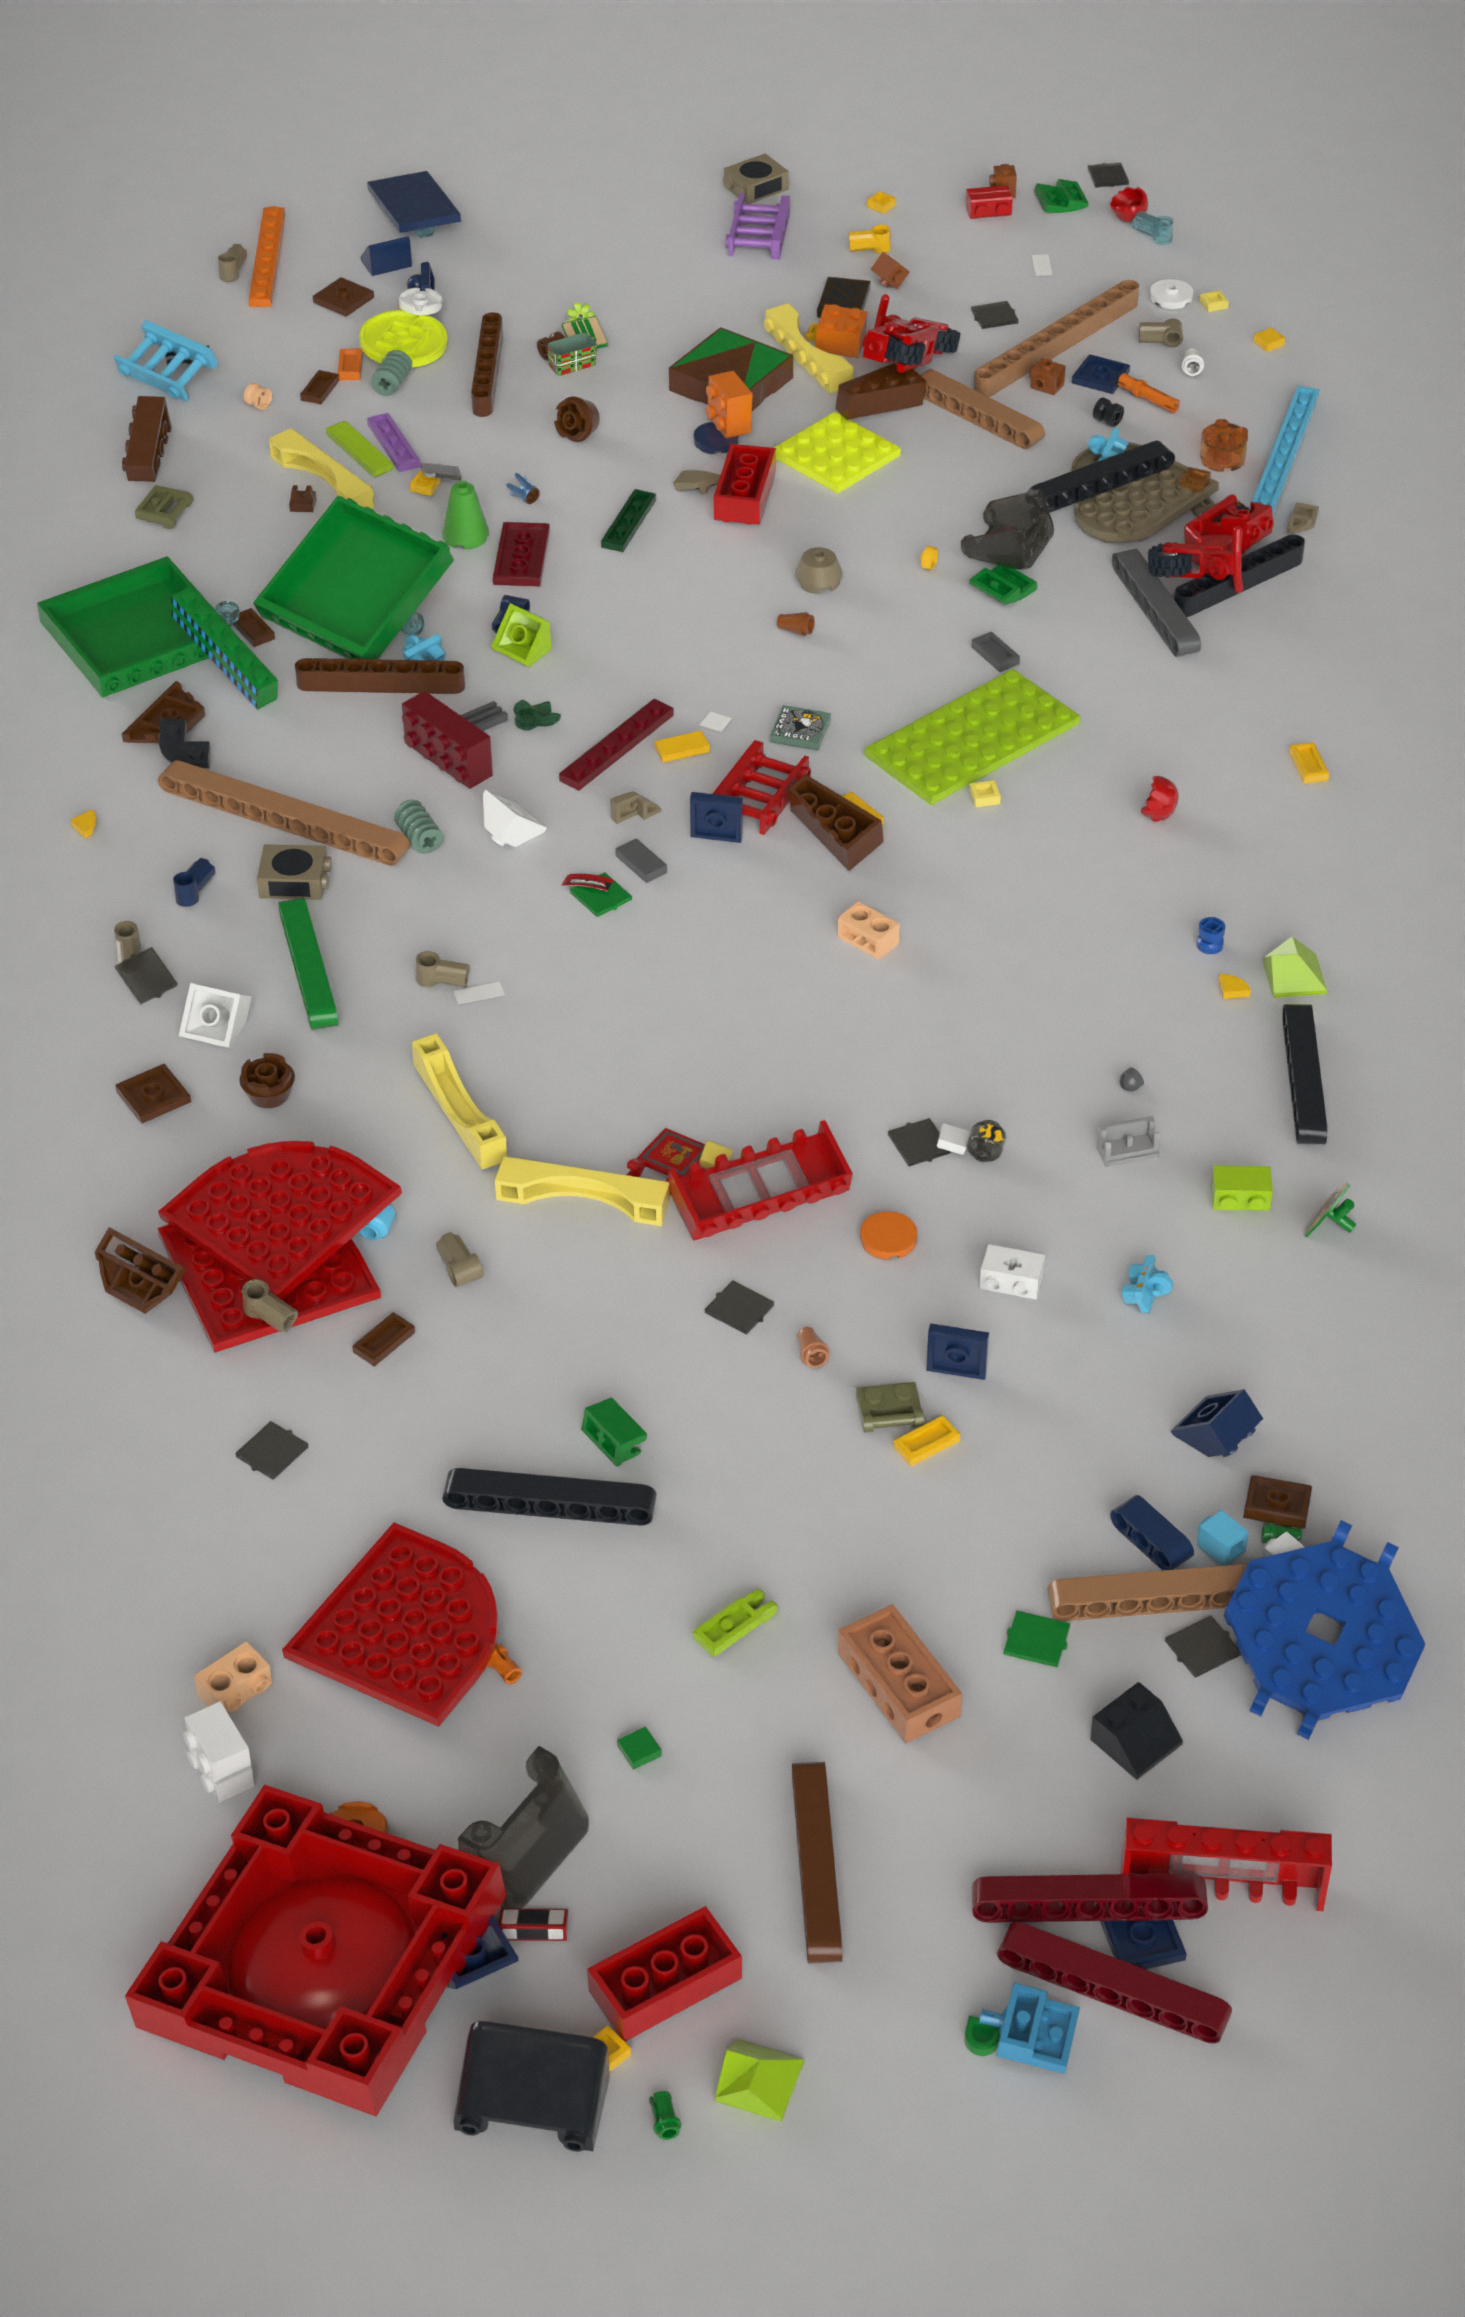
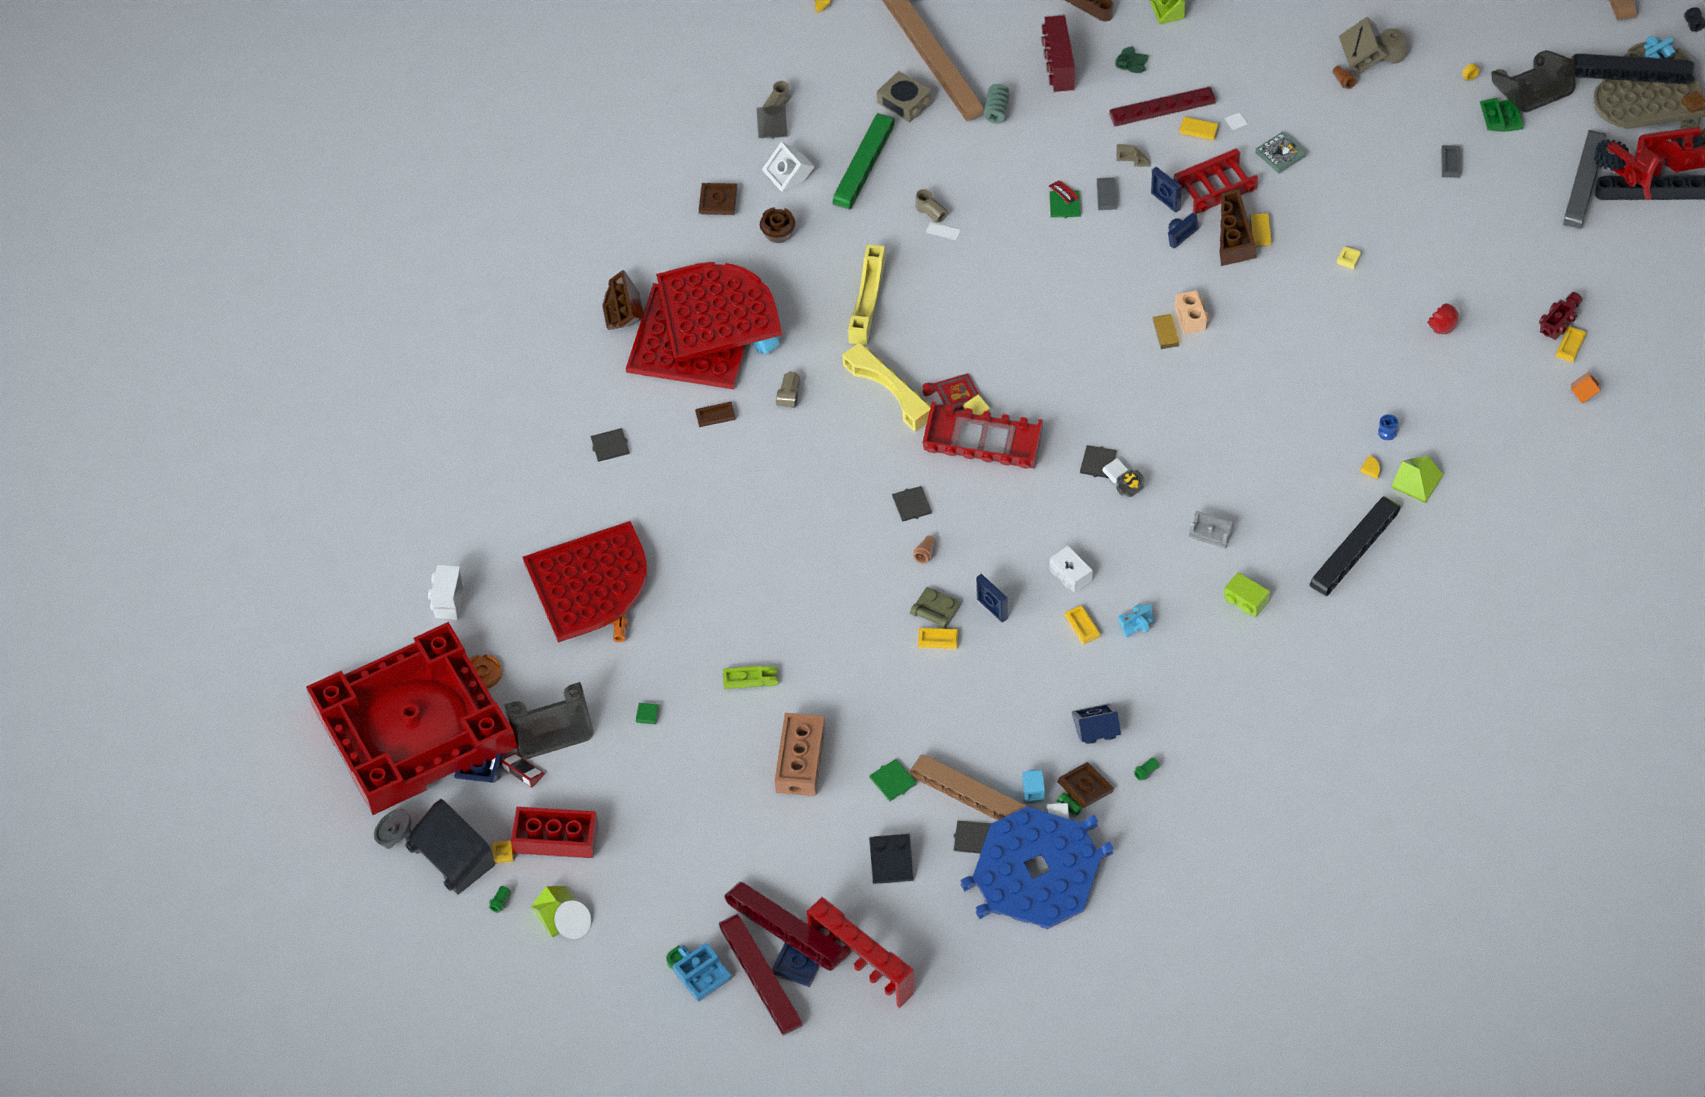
camera: 40 degrees right, 10 degrees up
(190, 883) = (841, 74): dark blue piece -> none
(234, 1678) = (483, 558): light nougat brick -> none
(263, 1304) = (665, 362): dark tan piece -> none
(424, 2114) = (393, 828): none -> dark grey piece
(486, 716) = (1098, 47): dark grey tile -> none
(509, 821) = (1052, 126): white slope -> none
(549, 1496) = (718, 553): black beam -> none
(613, 1430) = (781, 535): green hinge -> none
(770, 852) = (1181, 229): none -> dark blue tile
(791, 579) = (1362, 45): none -> dark tan brick
(796, 2075) = (572, 919): none -> white sticker
(816, 1863) = (676, 824): reddish brown beam -> none
(856, 966) = (1165, 331): none -> clear yellow tile
(888, 1235) = (1027, 508): orange tile -> none
(971, 736) = (1379, 213): lime plate -> none
(1084, 1327) = (1082, 624): none -> yellow tile
(1131, 1080) = (1250, 492): dark grey hinge -> none
(1152, 1533) = (1002, 760): dark blue beam -> none
(1275, 738) = (1560, 316): none -> dark red brick
(1327, 1448) = (1142, 772): none -> green pin
(1337, 1214) = (1284, 641): green shield -> none
(1372, 792) = (1585, 387): none -> orange panel

